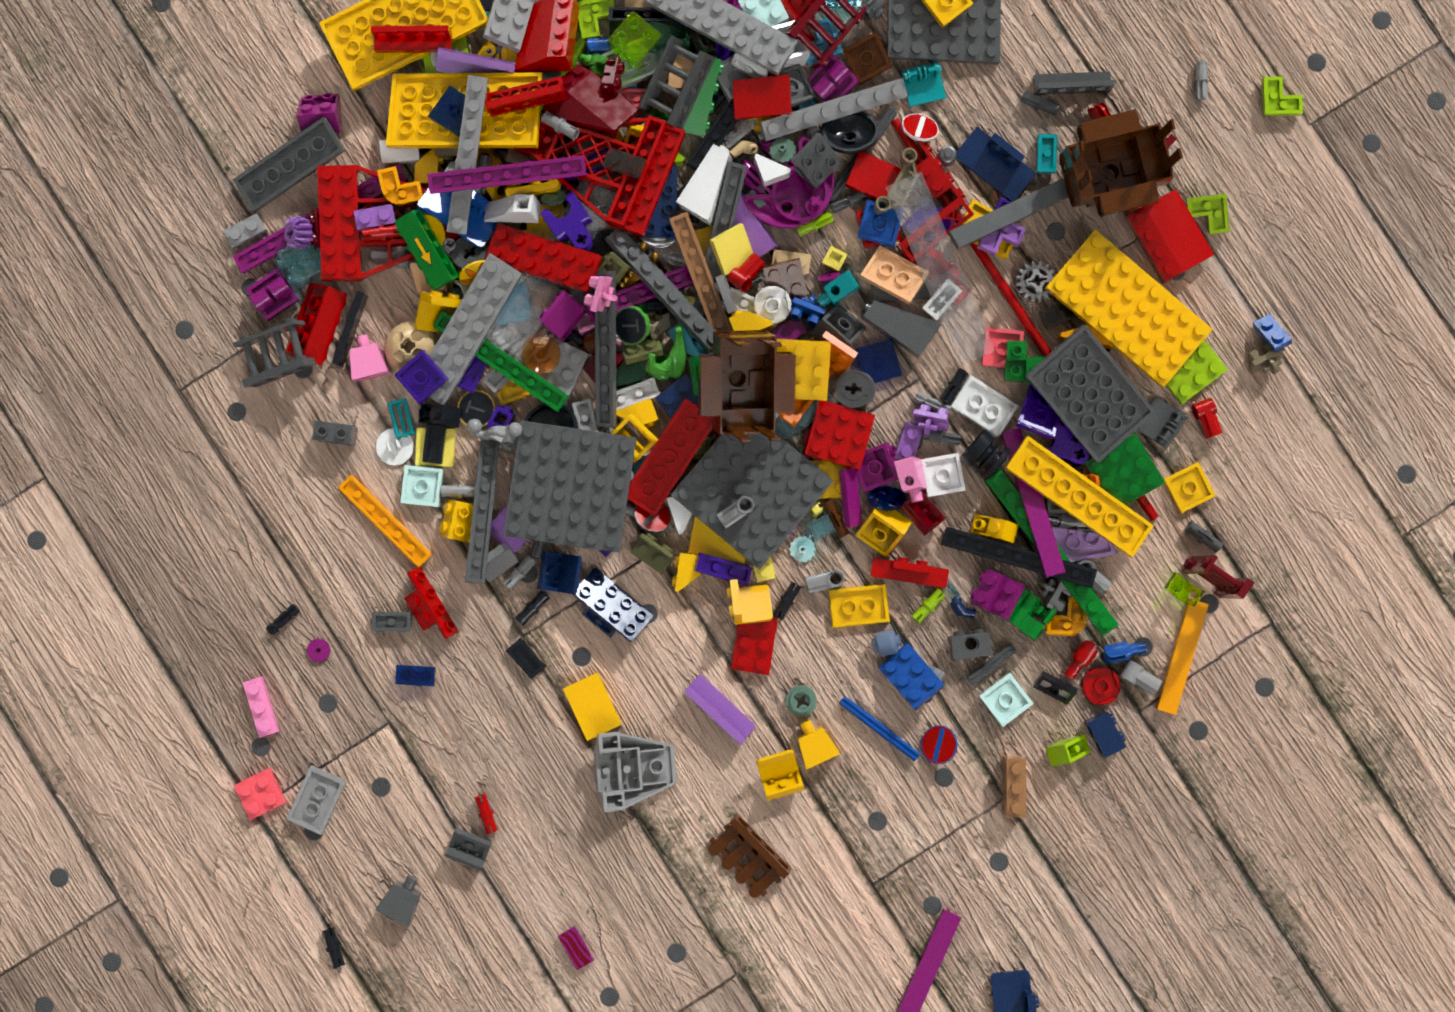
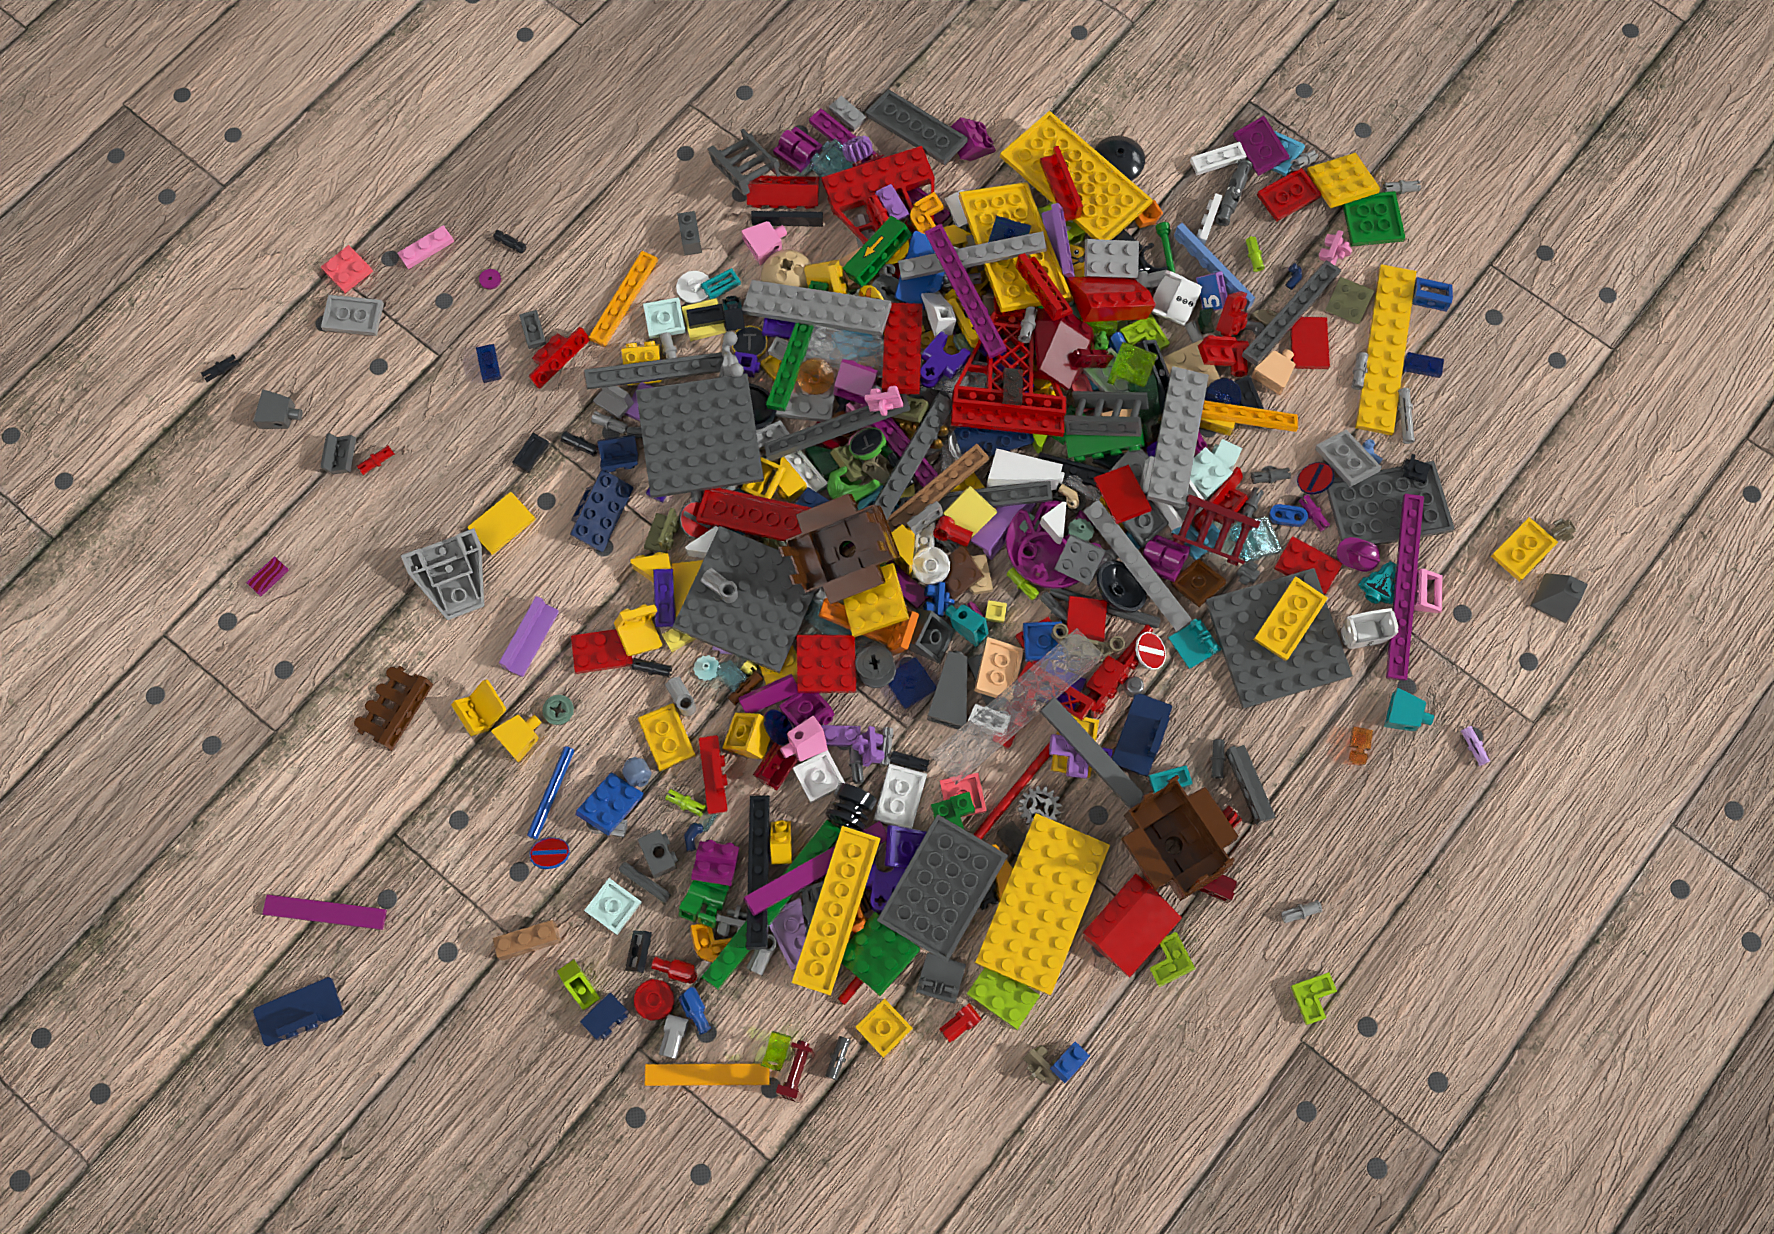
camera: 65 degrees right, 15 degrees down
(421, 377) = (761, 283): dark purple tile -> none

